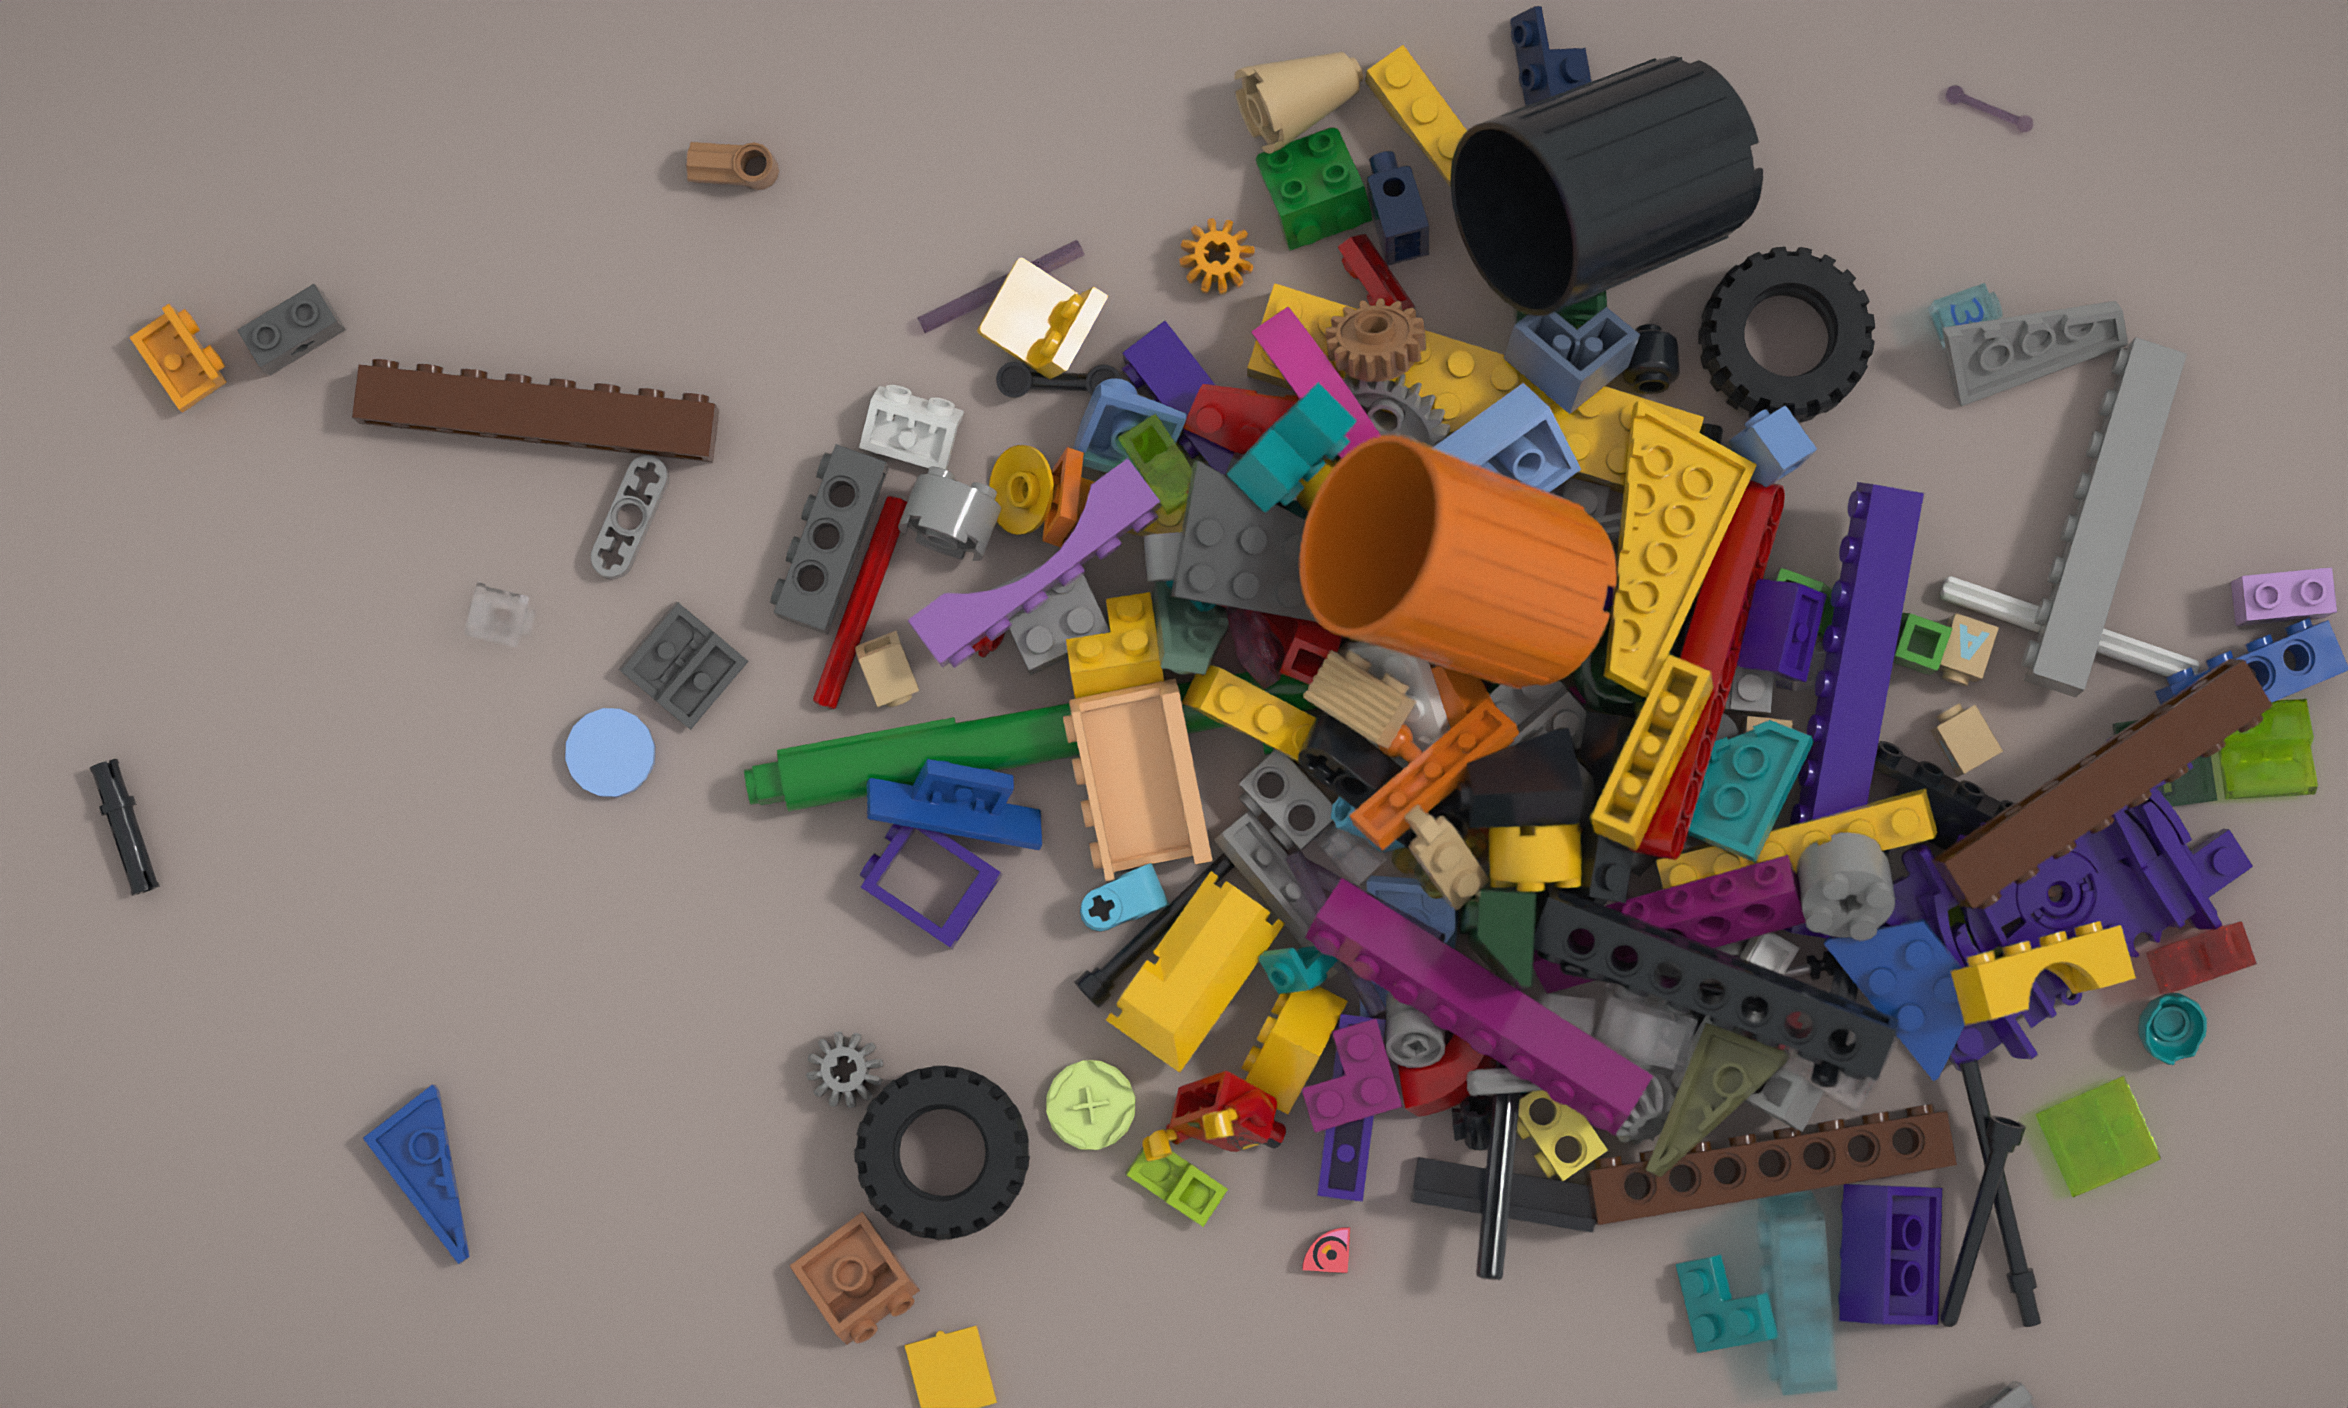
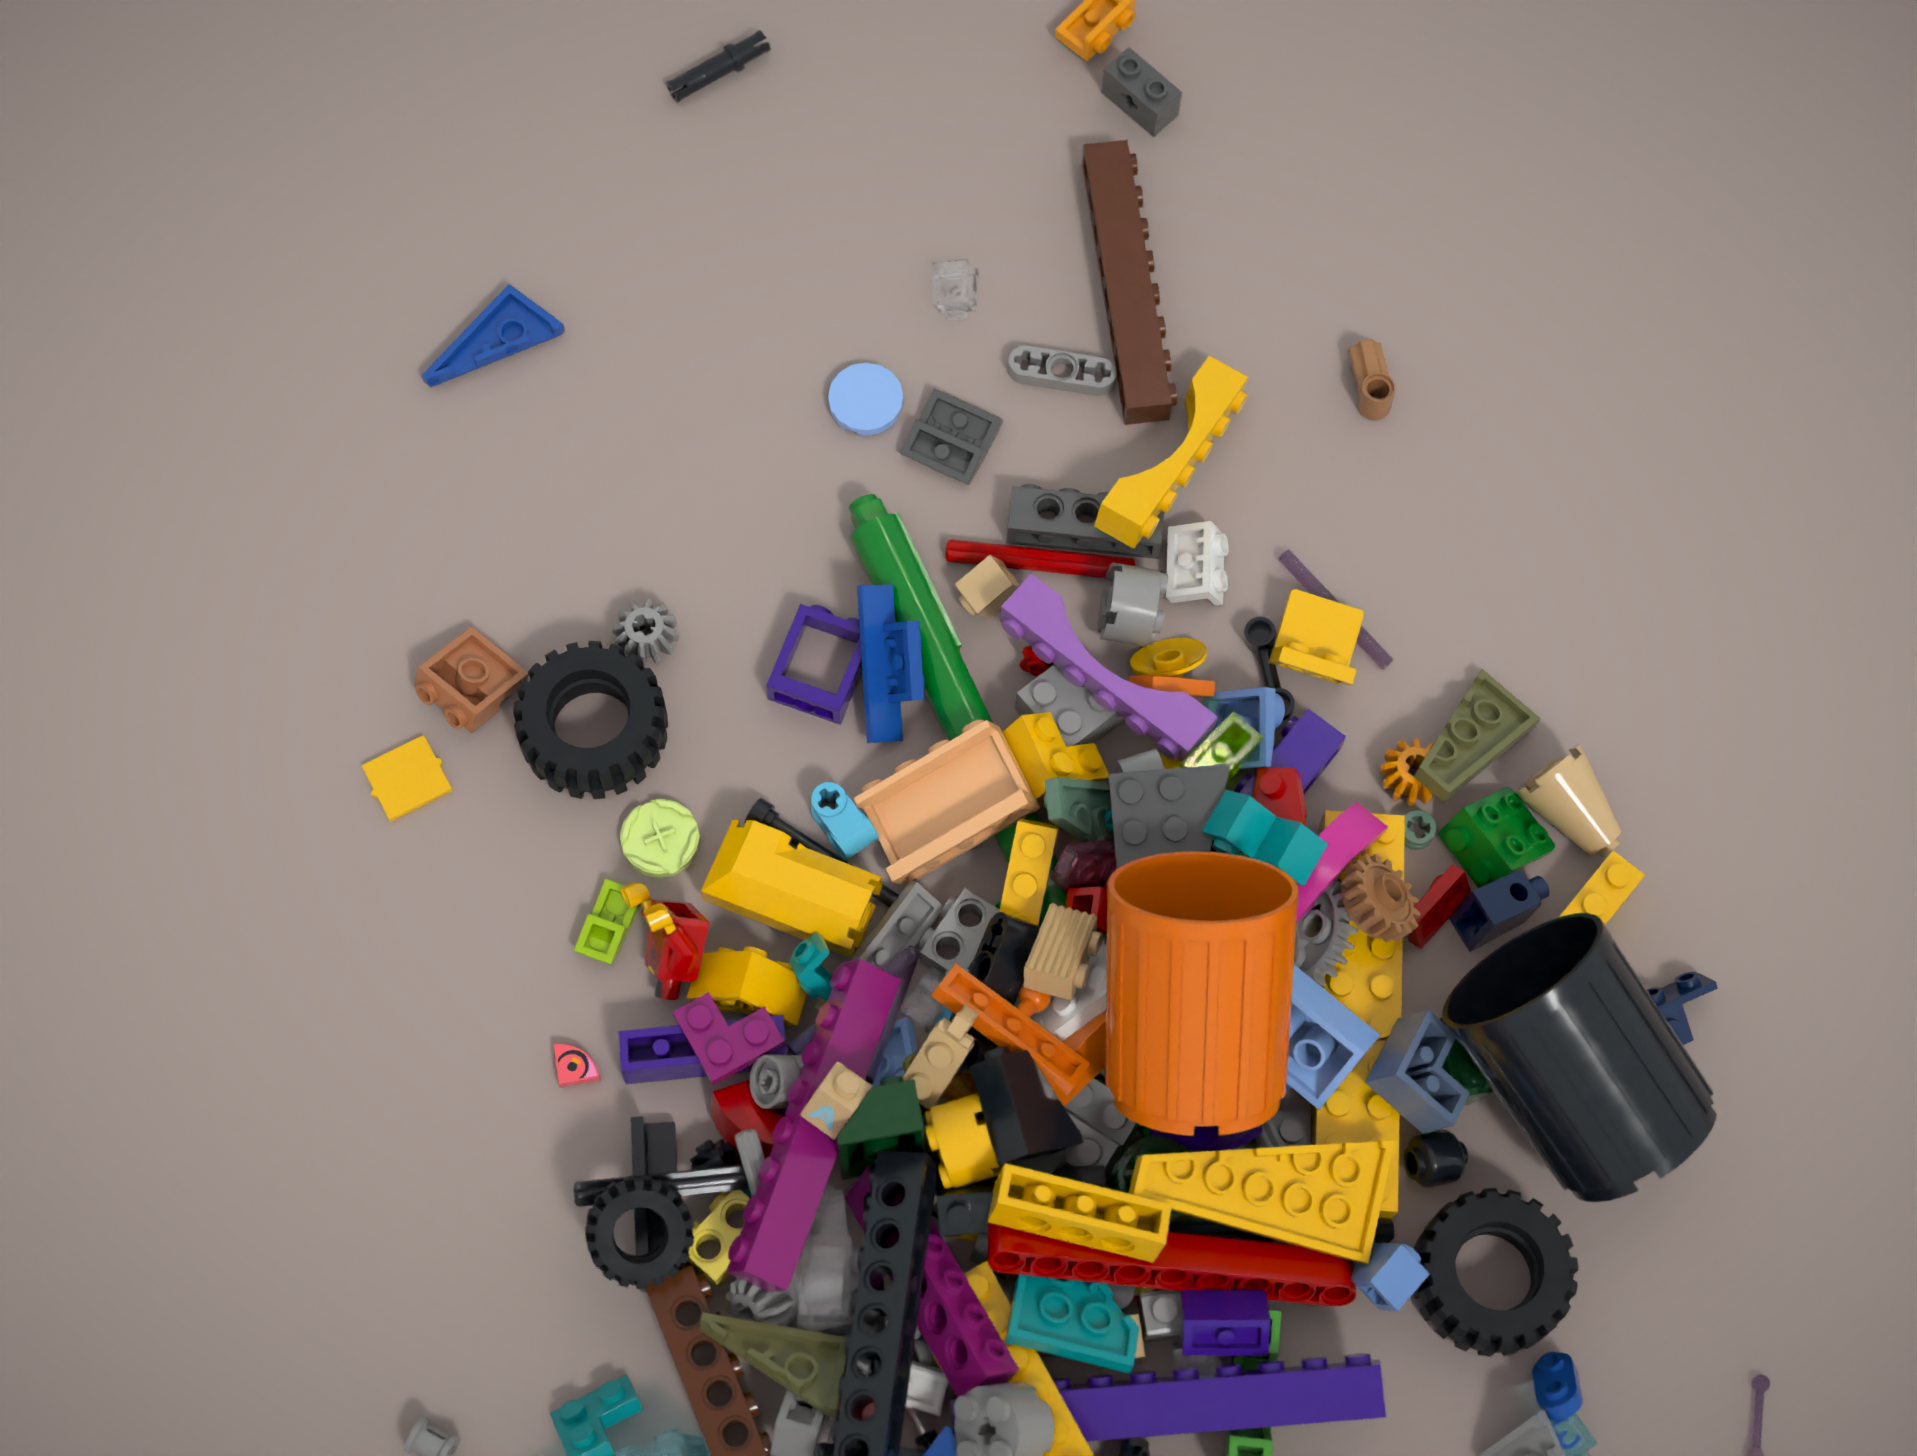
camera: 70 degrees right, 15 degrees down
(719, 361) = (1137, 500): none -> yellow arch
(1193, 174) = (1475, 736): none -> olive wing
(1273, 260) = (1425, 822): none -> sand green bush
(1475, 978) = (835, 1100): none -> tan brick
(1585, 1217) = (645, 1268): none -> black tyre
(1907, 305) = (1557, 1385): none -> blue plate

